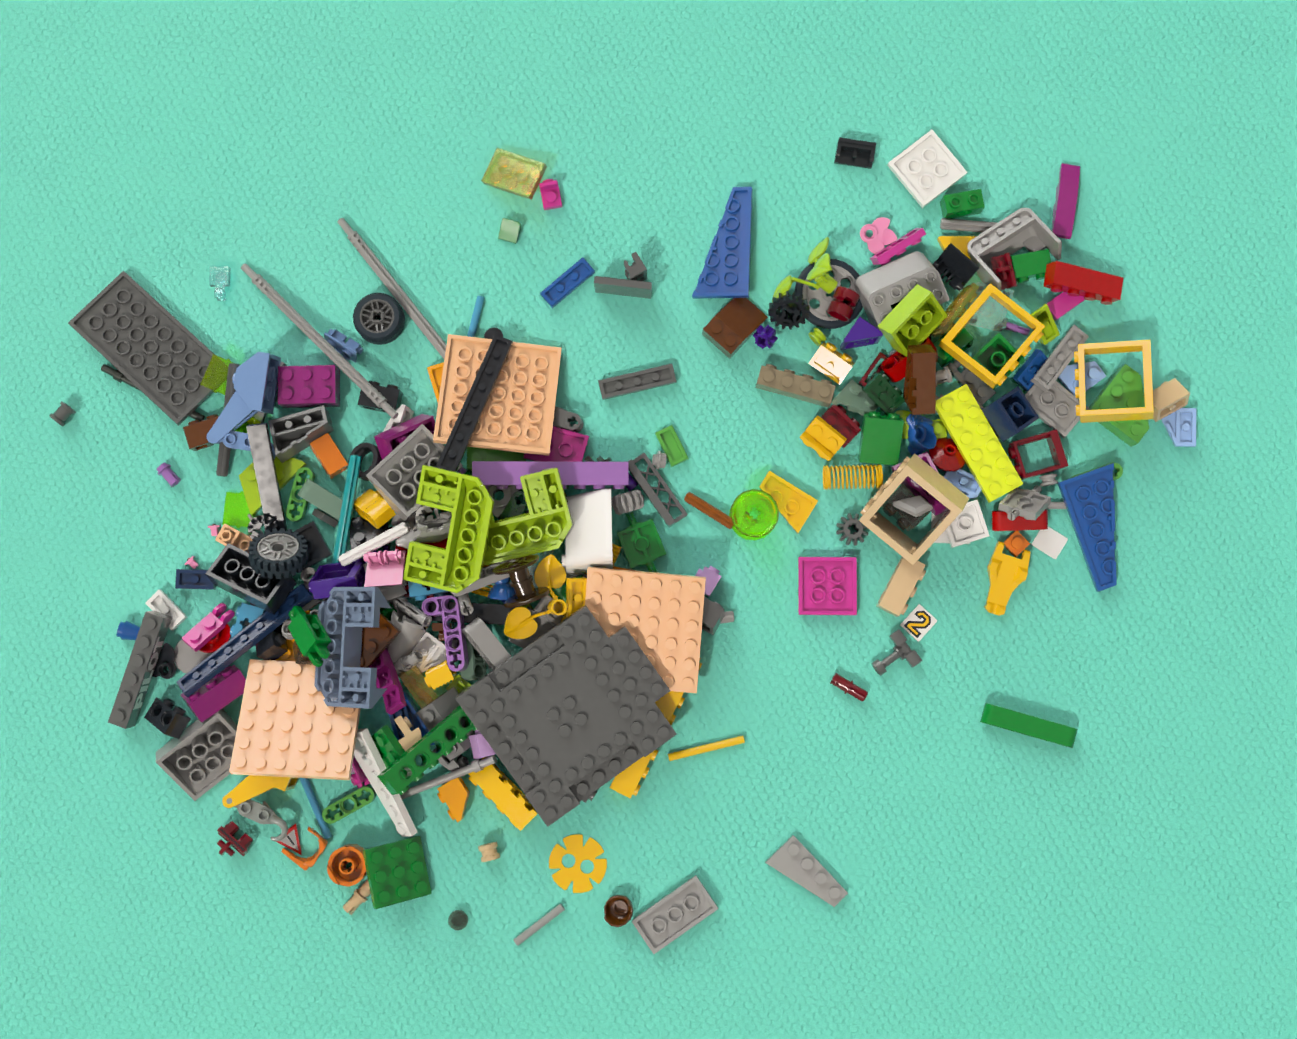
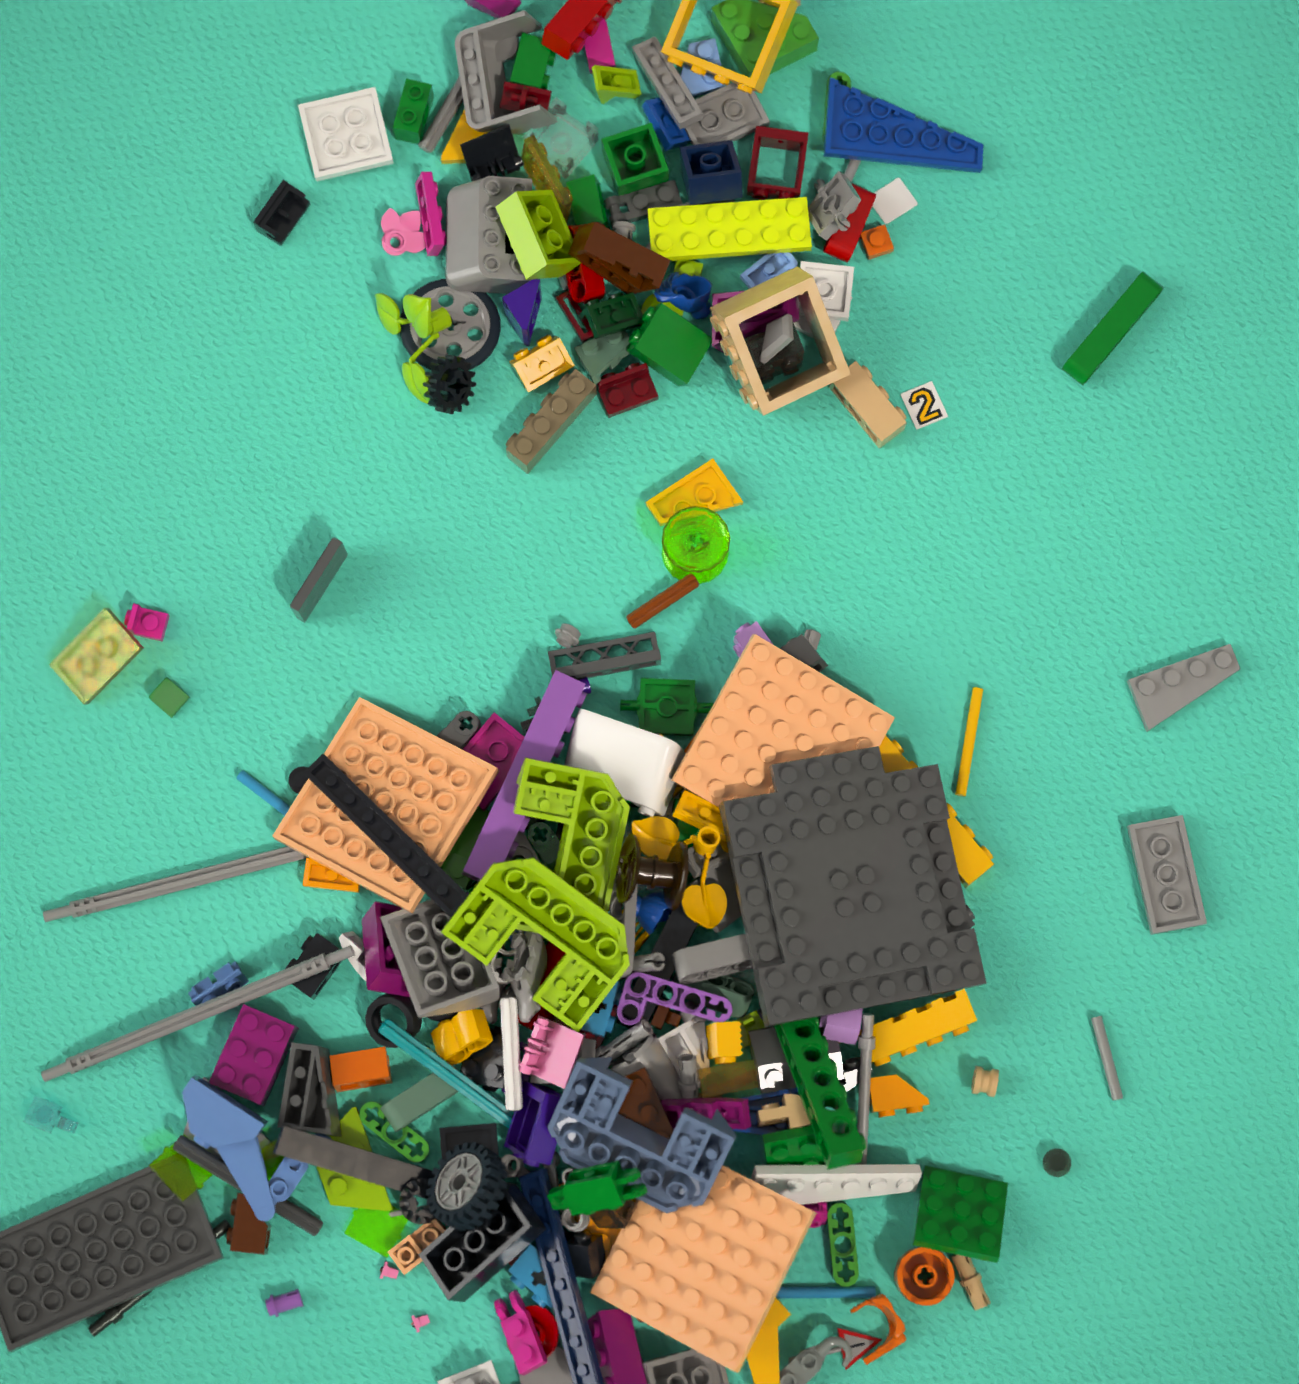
camera: 70 degrees left, 5 degrees down
(193, 580) = (445, 1326): dark blue plate -> none
(324, 517) = (441, 1111): dark grey tile -> none
(376, 330) = (189, 913): wheel -> none
(567, 282) = (275, 652): blue tile -> none
(575, 847) = (1070, 979): yellow piece -> none
(618, 910) = (1132, 944): reddish brown hair -> none
(628, 502) = (605, 696): light grey gear -> none
(637, 270) = (302, 550): dark grey hinge -> none
(637, 381) = (450, 619): dark grey plate -> none
(671, 446) = (555, 612): bright green tile -> none
(728, 260) = (344, 431): blue wing -> none
(734, 325) = (435, 463): reddish brown slope -> none
(765, 336) = (468, 430): dark purple gear -> none
(817, 336) = (499, 365): lime bush -> none
(823, 438) = (634, 416): yellow bracket -> none
(827, 476) = (685, 427): yellow piece -> none
(827, 585) = (827, 496): dark pink plate -> none
(843, 302) = (469, 308): dark red wheel -> none
(846, 532) = (768, 442): dark grey gear -> none
(849, 687) = (969, 526): dark red axle -> none
(901, 651) = (951, 441): dark grey bar -> none
(946, 460) = (732, 278): red dish -> none
(977, 369) = (622, 191): yellow window -> none
(1004, 577) = (912, 273): yellow animal -> none
(1015, 328) = (605, 116): medium lavender pin -> none
(1048, 480) = (814, 166): light grey bush -> none

